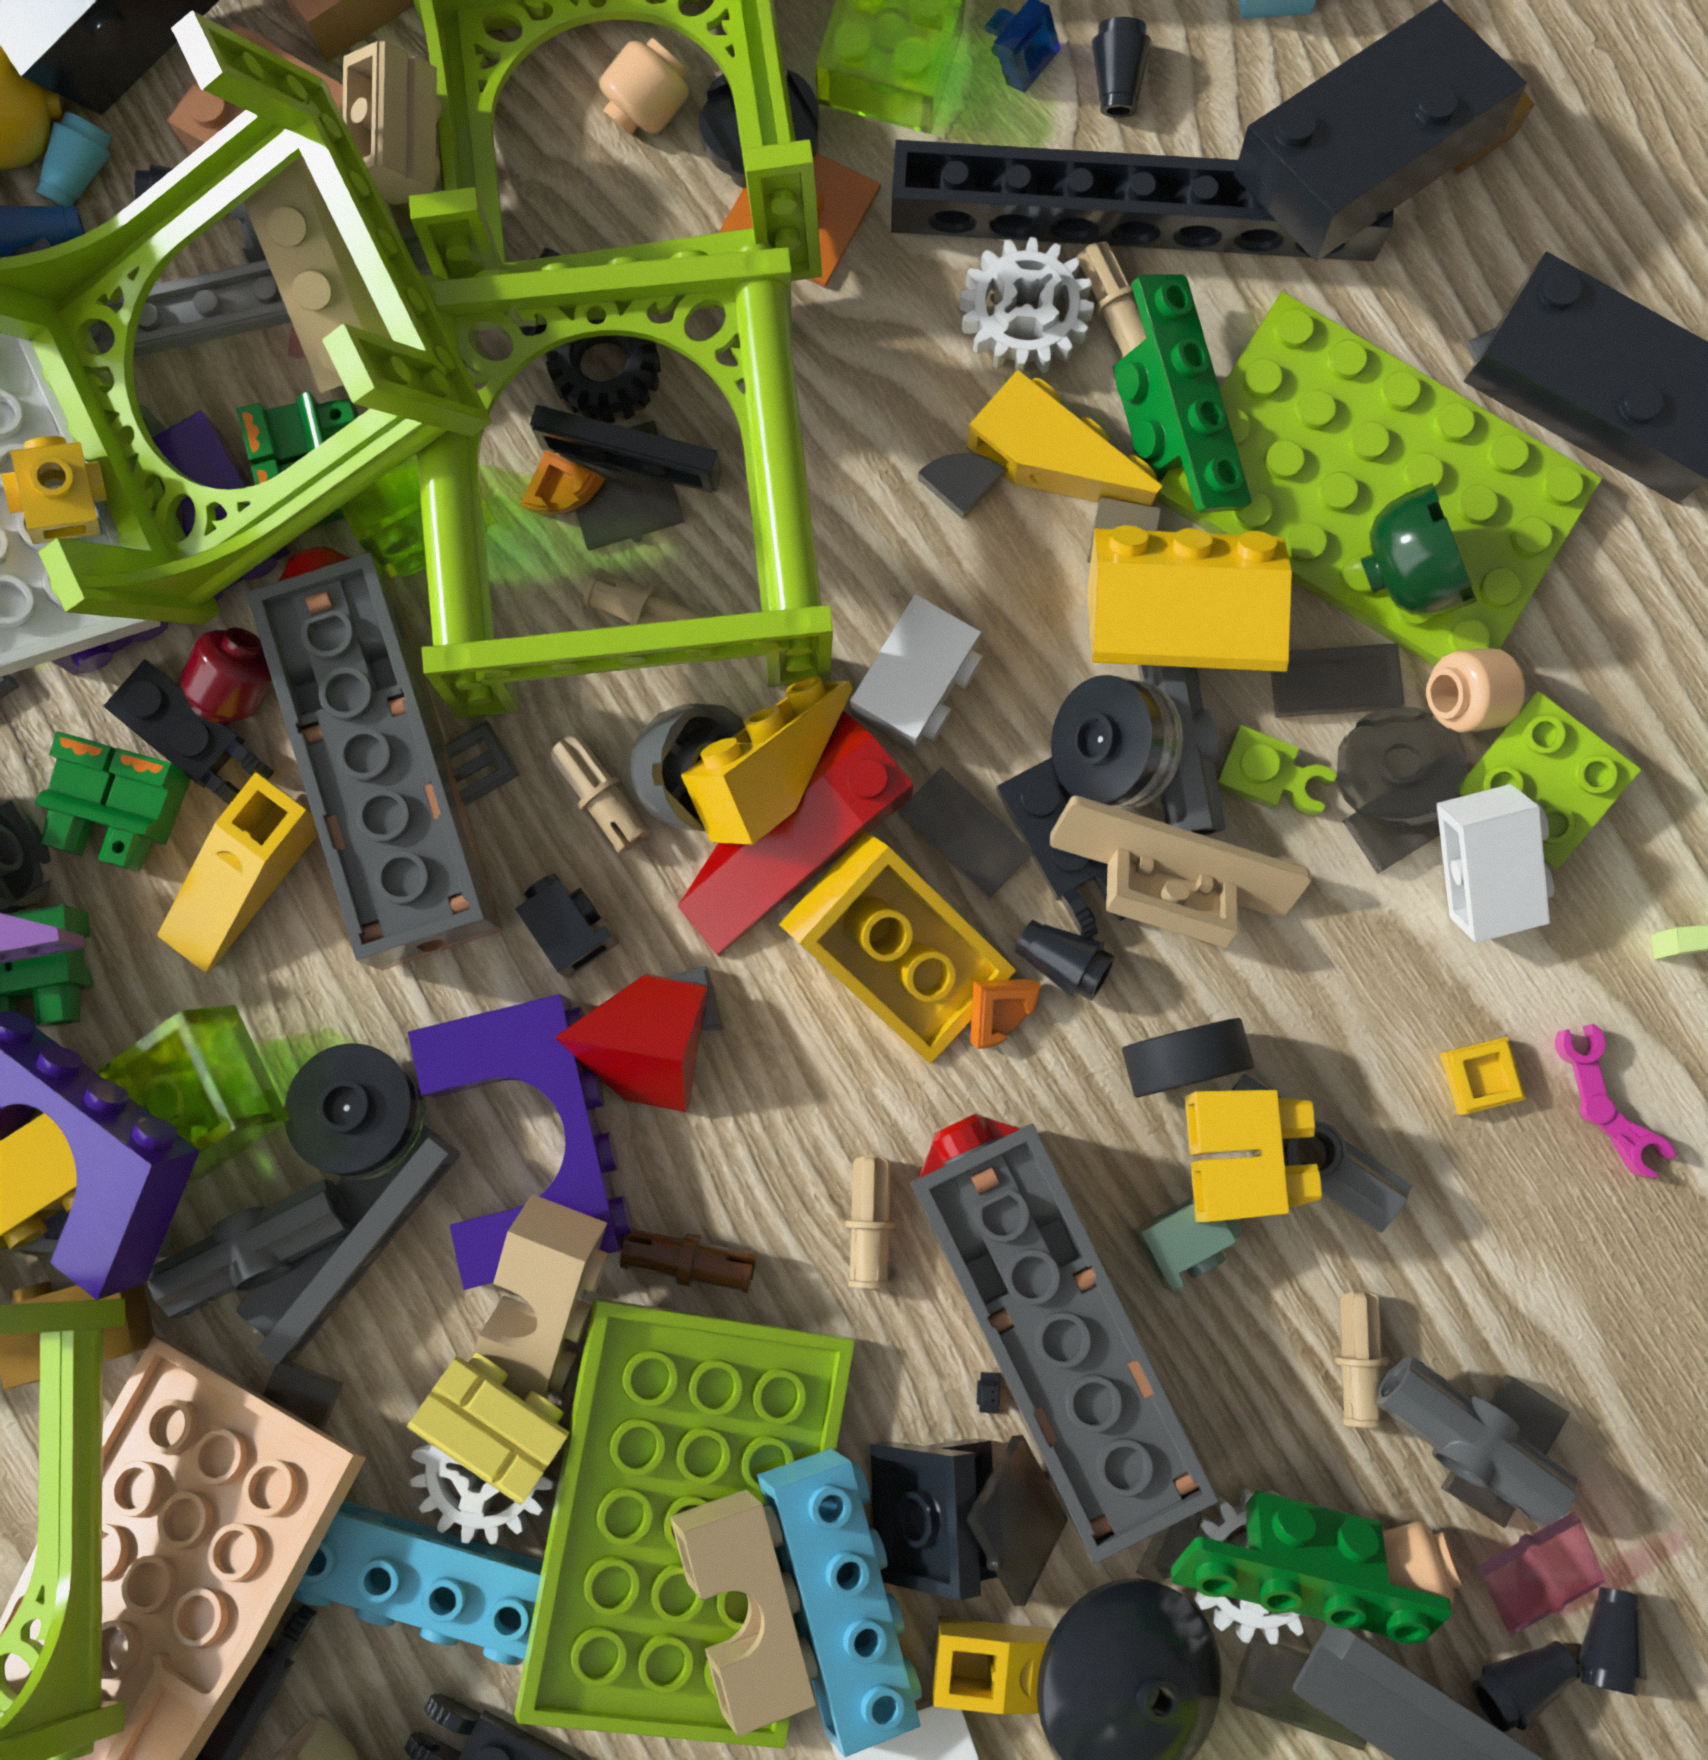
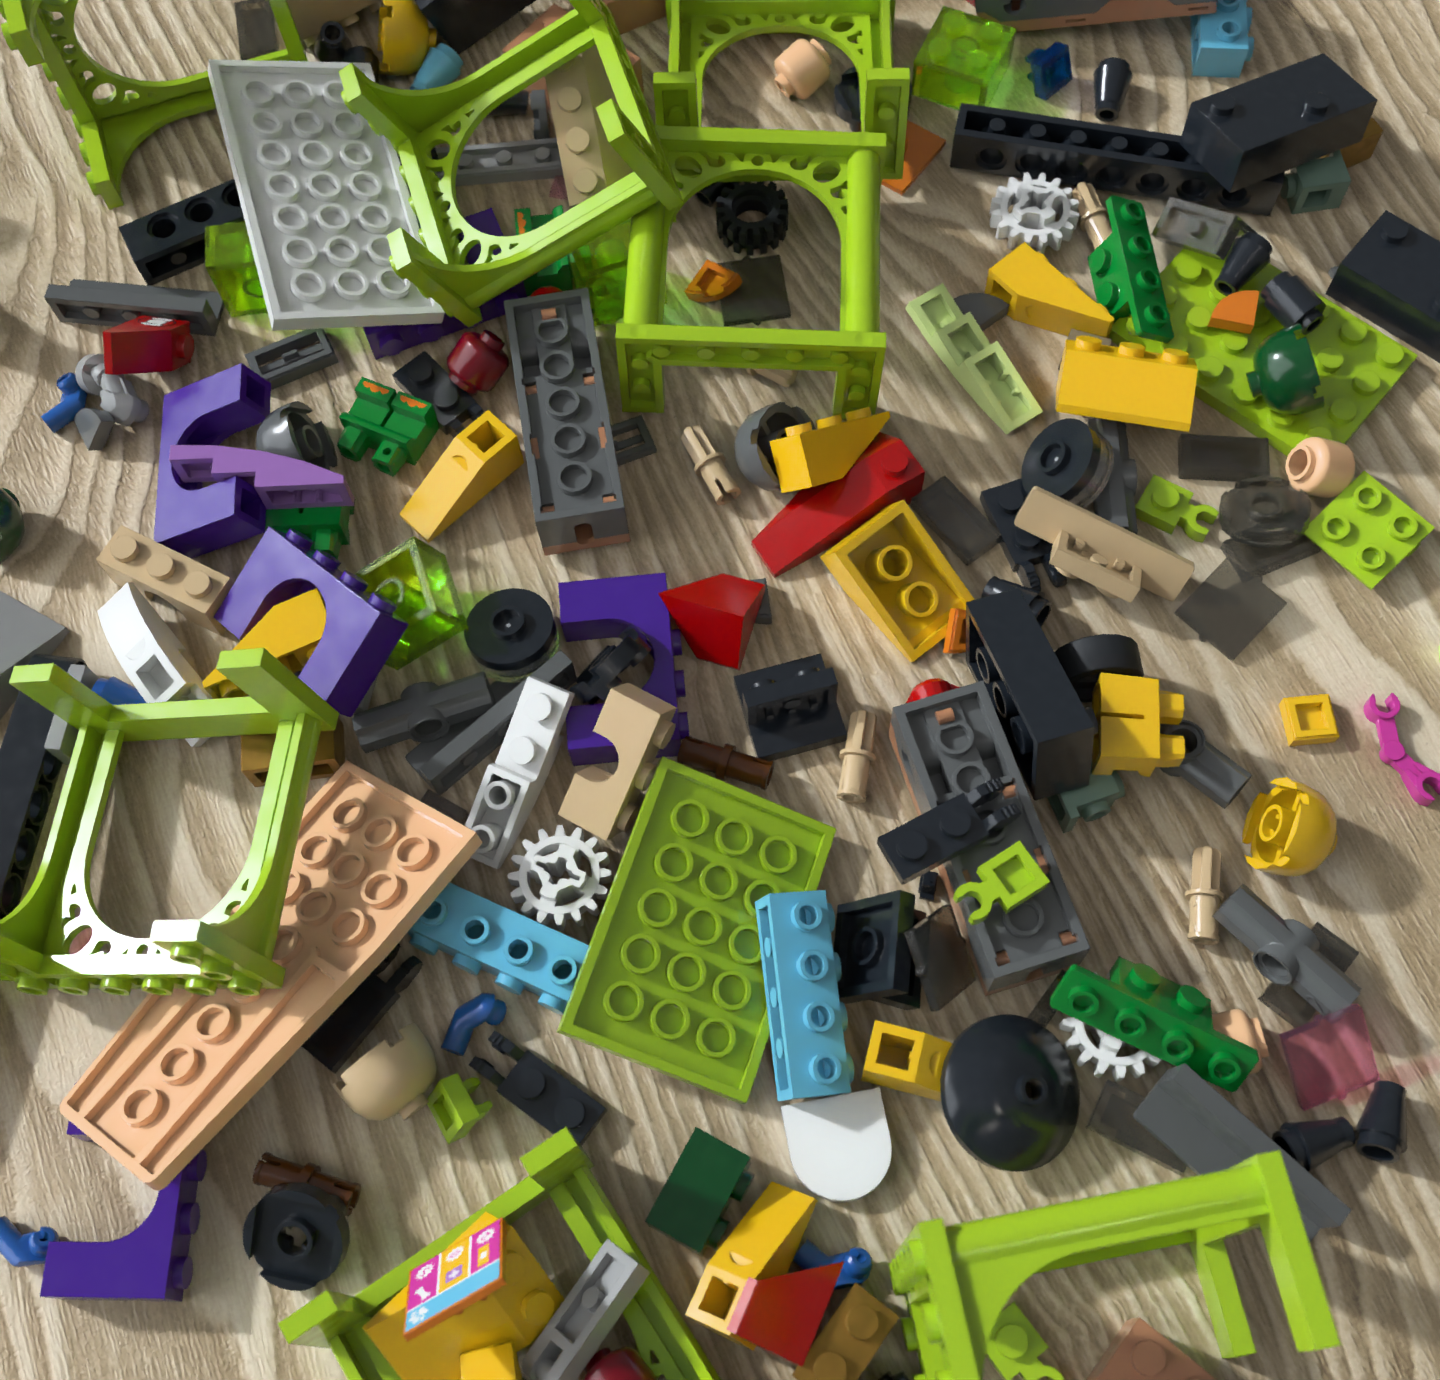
camera: 10 degrees right, 15 degrees down
(61, 511) = (396, 209): yellow brick -> none
(393, 118) = (648, 45): tan brick -> none
(395, 1679) = (469, 1016): none -> blue arm
(398, 1325) = (520, 769): none -> white slope
(490, 1427) = (572, 831): light yellow brick -> none
(502, 1151) = (602, 672): none -> black plate
(564, 925) = (675, 540): black brick -> none
(626, 449) = (761, 262): black tile -> none
(764, 1667) = (736, 940): tan arch -> none
(765, 1161) = (791, 707): none -> black bracket
(916, 674) = (936, 415): white brick -> none
(963, 567) = (973, 361): none -> yellowish green slope
(1003, 1370) = (944, 832): none -> black hinge
(1098, 1126) = (1030, 693): none -> black brick
(1099, 1431) = (1006, 879): none -> lime plate
(1274, 313) = (1199, 228): none -> clear smoke panel
(1339, 448) = (1236, 312): none -> orange tile
(1343, 365) = (1244, 261): none -> black cone
(1364, 922) = (1230, 608): none -> clear smoke piece
(1421, 430) = (1293, 302): none -> black brick
(1444, 207) = (1316, 184): none -> sand green brick
(1468, 1259) = (1290, 829): none -> yellow cylinder
(1495, 862) = (1327, 572): white brick -> none

